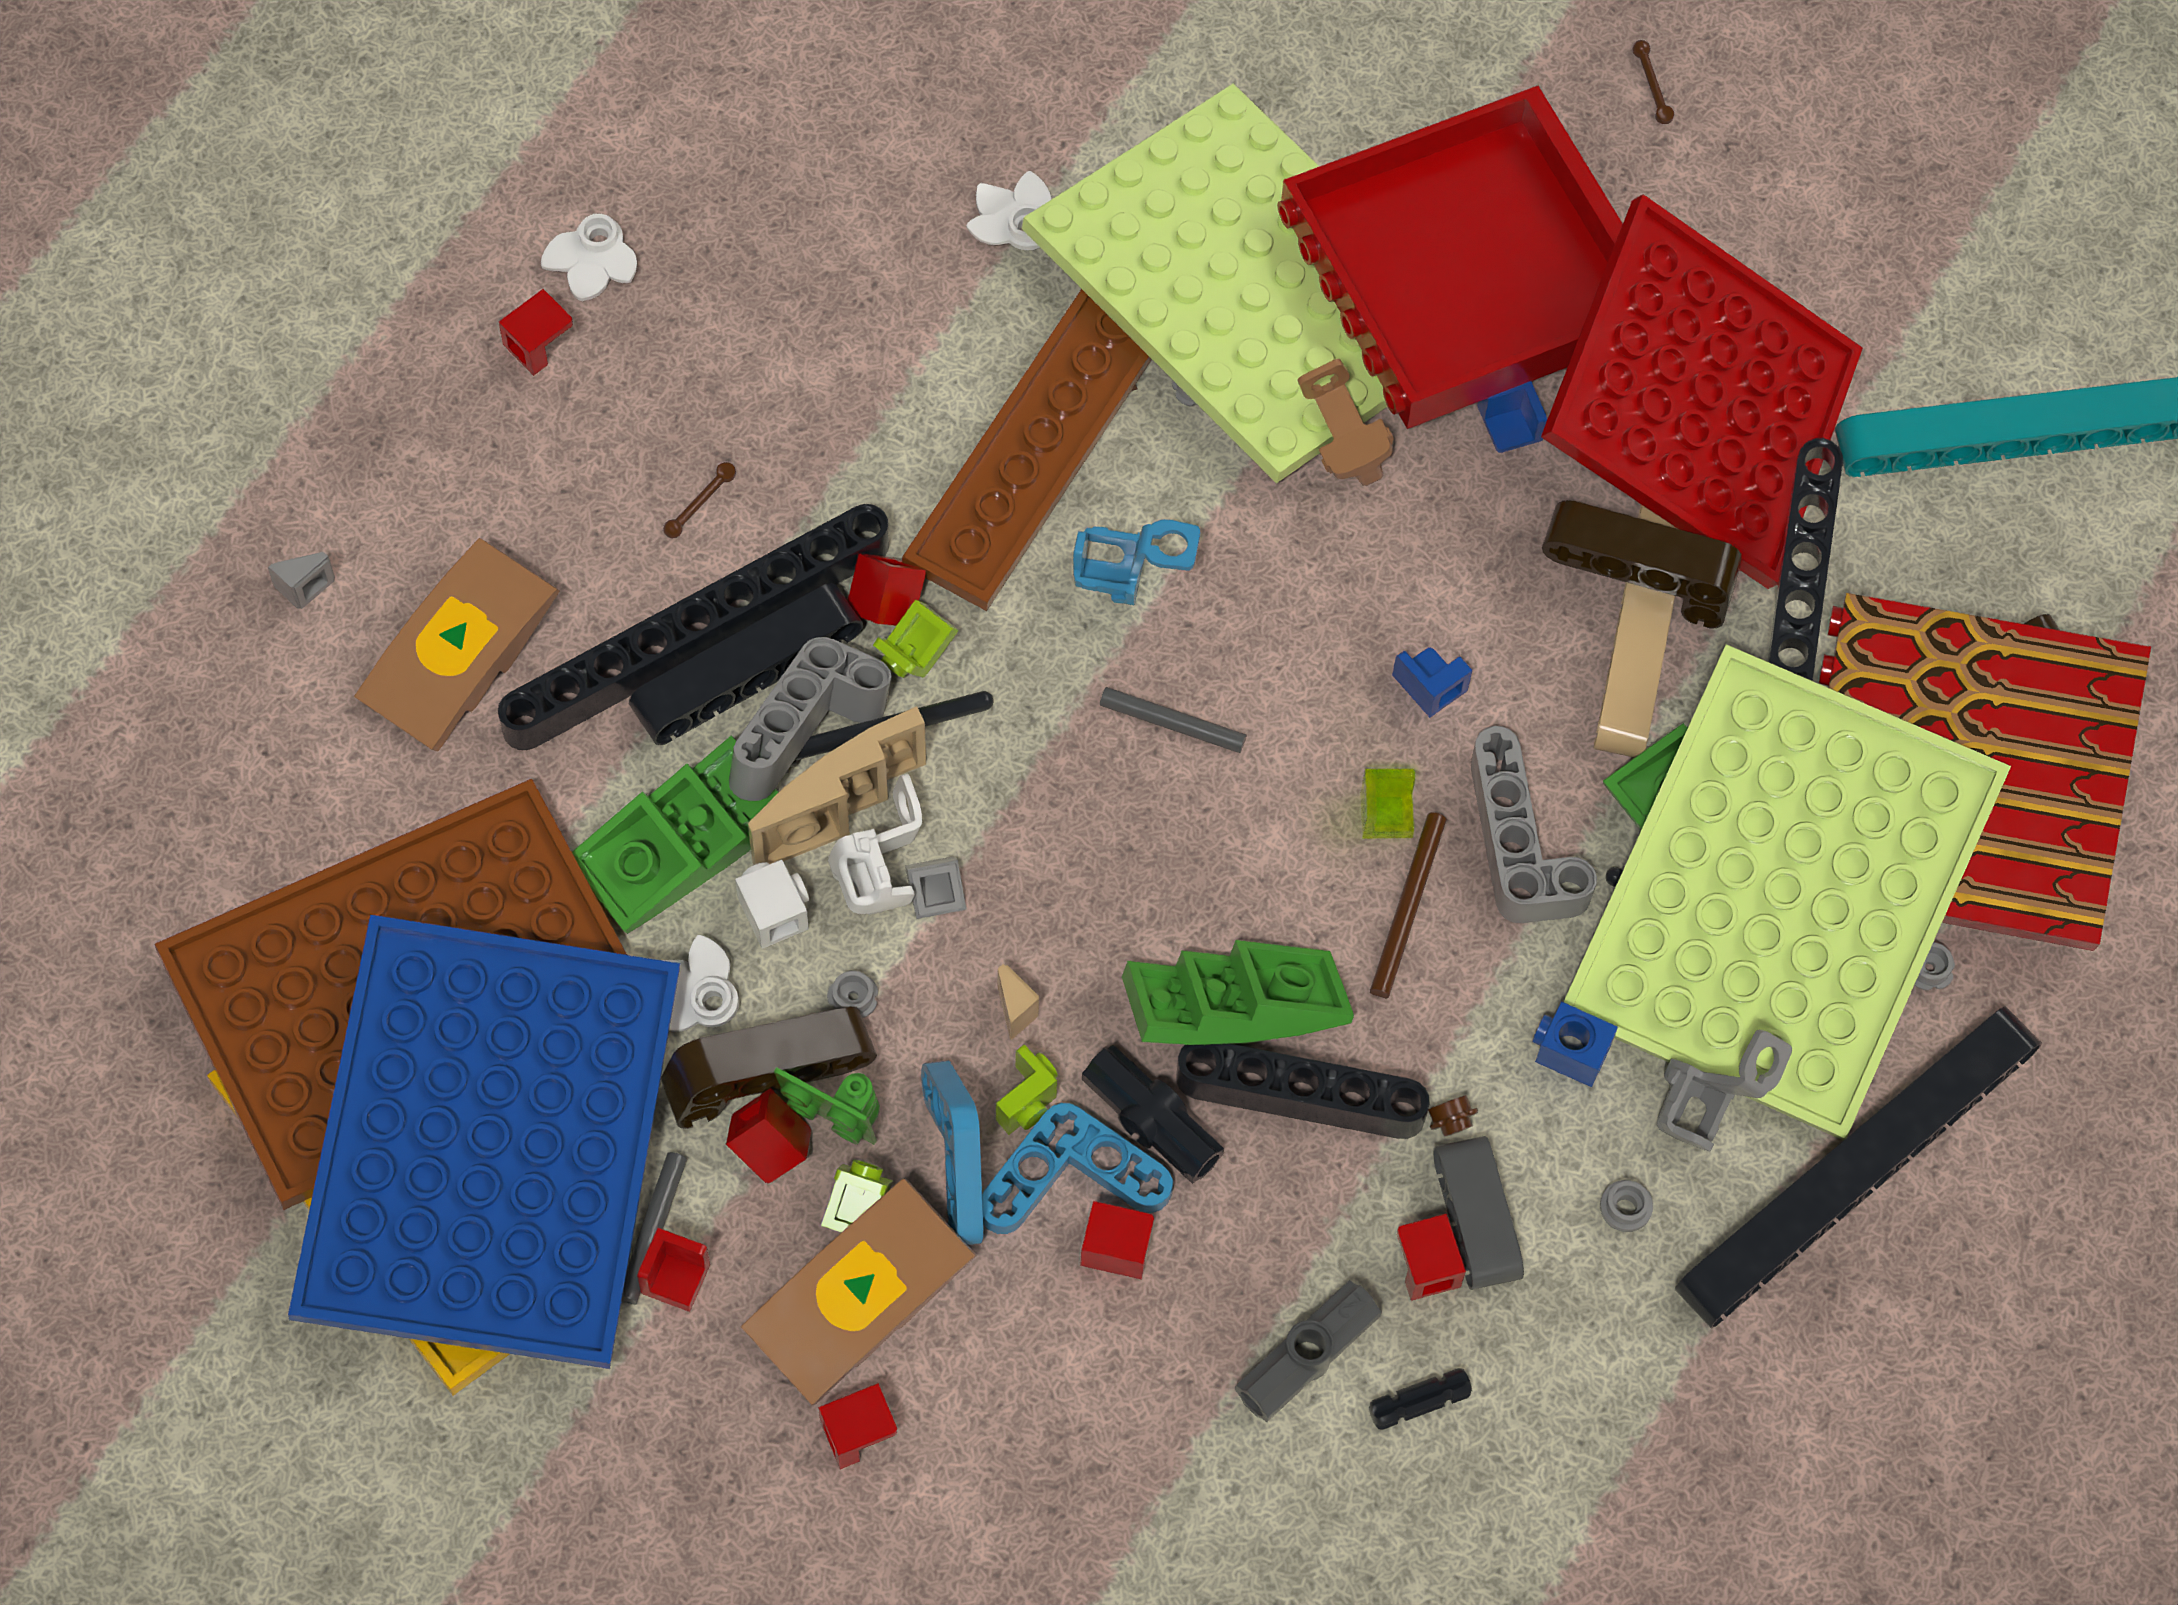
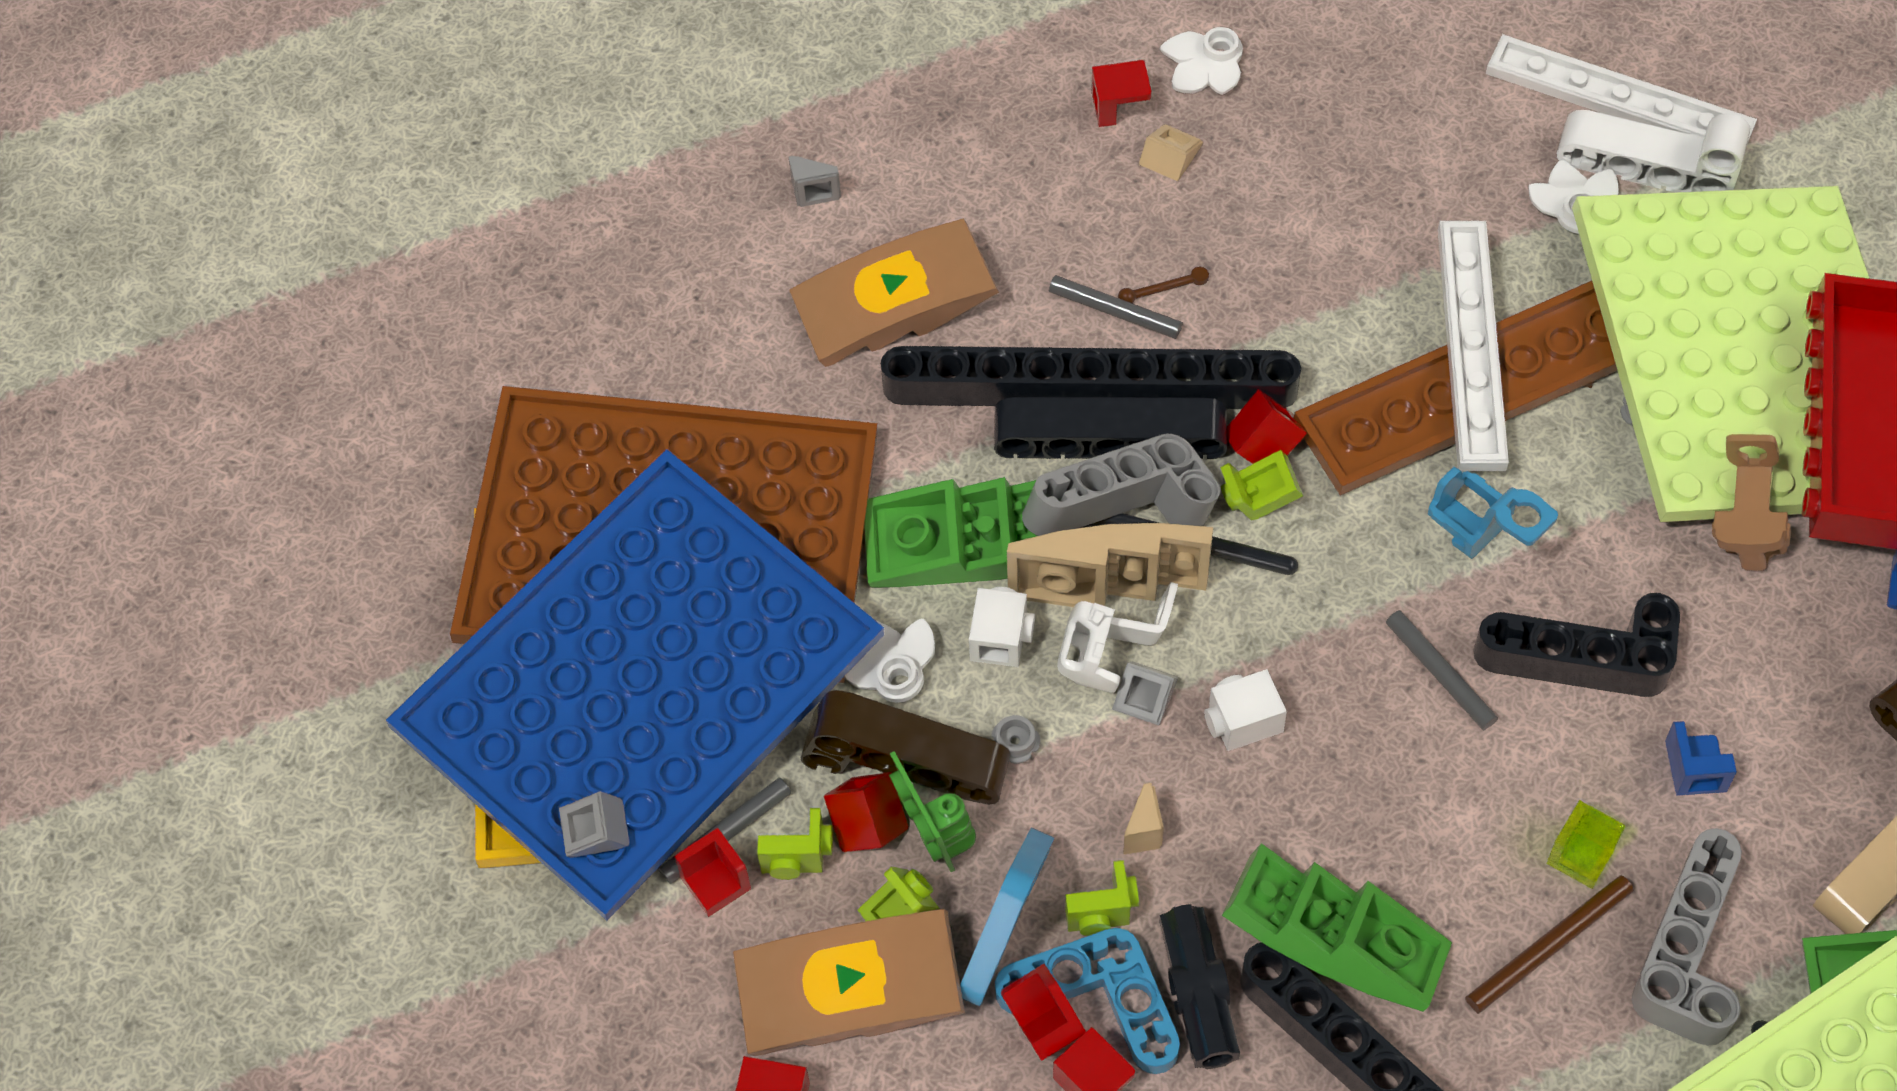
camera: 40 degrees right, 5 degrees down
(547, 1293) = (594, 825): none -> light grey slope
(618, 365) = (1169, 151): none -> tan slope
(669, 544) = (1115, 307): none -> dark grey bar
(730, 1214) = (795, 854): none -> lime bracket
(990, 93) = (1601, 88): none -> white tile
(1018, 407) = (1472, 346): none -> white tile
(1034, 852) = (1245, 710): none -> white brick
(1042, 1214) = (1042, 1012): none -> red panel
(1062, 135) = (1657, 154): none -> white beam
(1214, 674) = (1578, 642): none -> black beam

